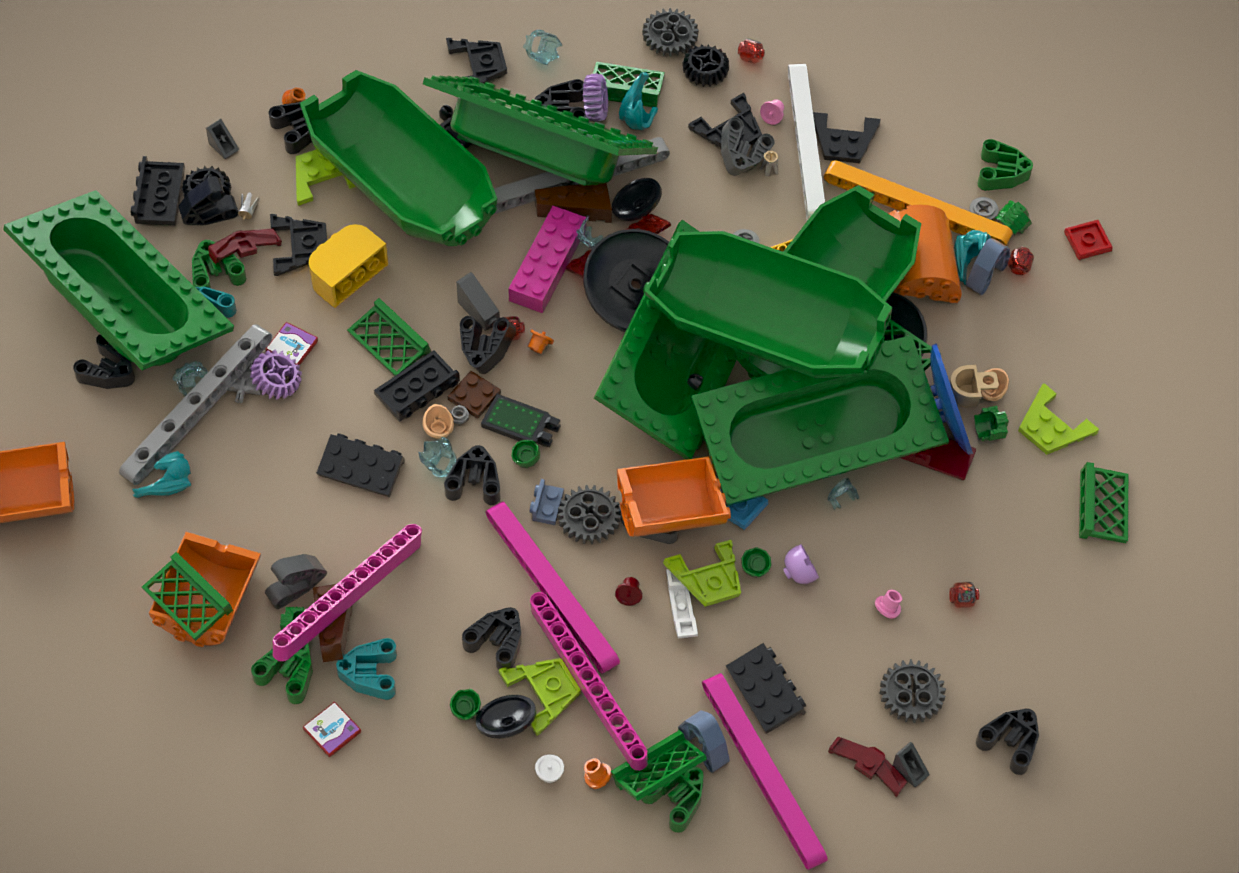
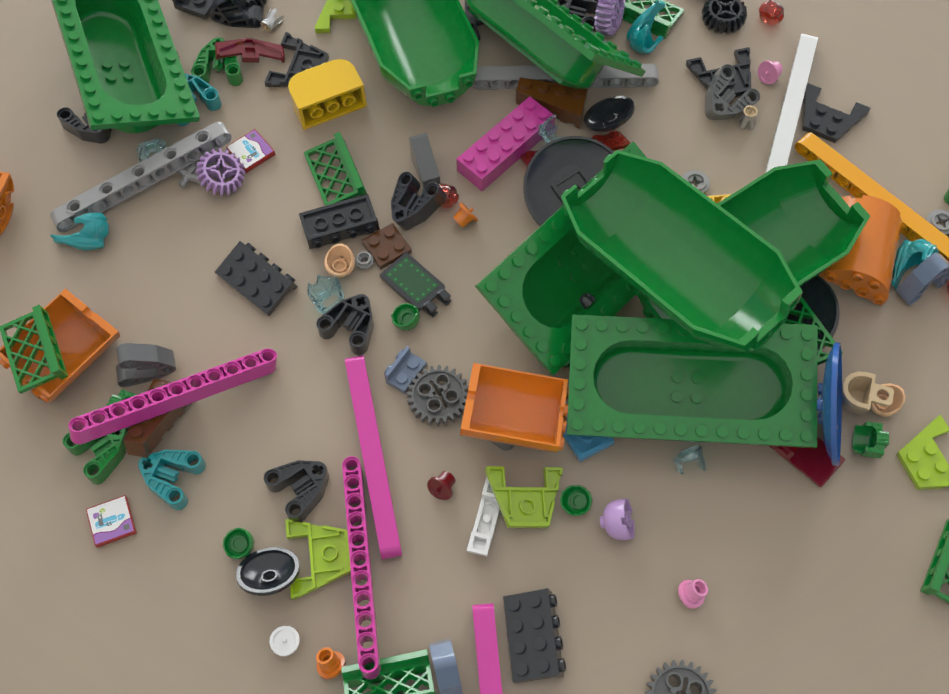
camera: 25 degrees right, 5 degrees up
(963, 594) = (774, 610): clear red head -> none

